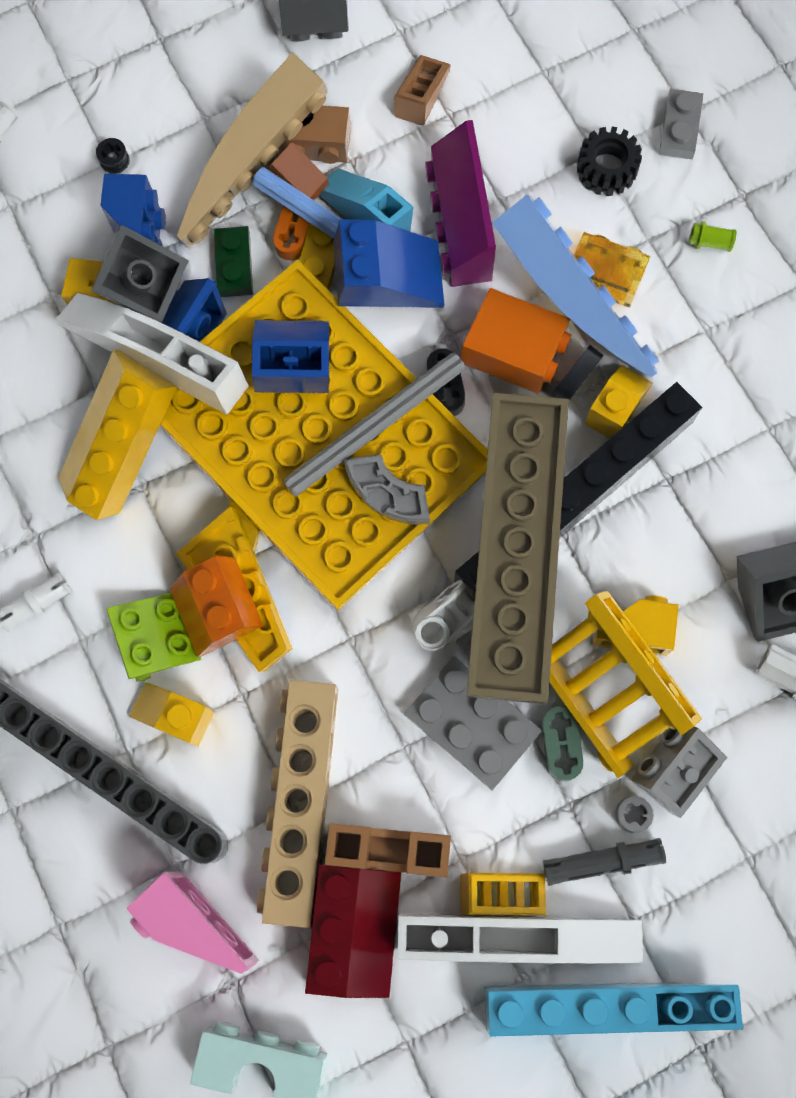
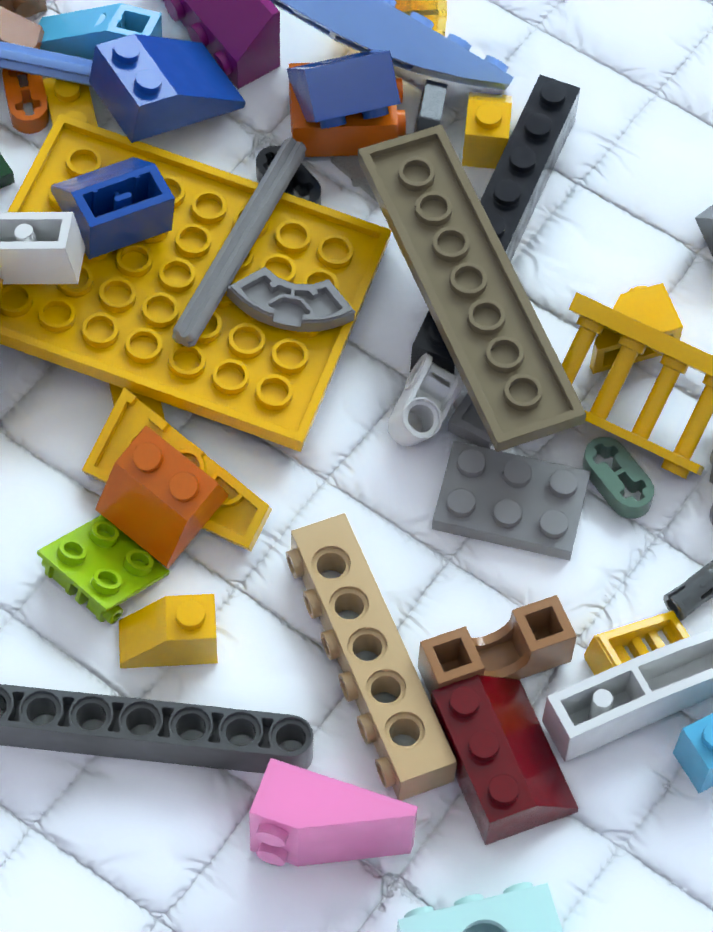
camera: 35 degrees left, 15 degrees down
(515, 330) = (345, 87): none -> blue slope

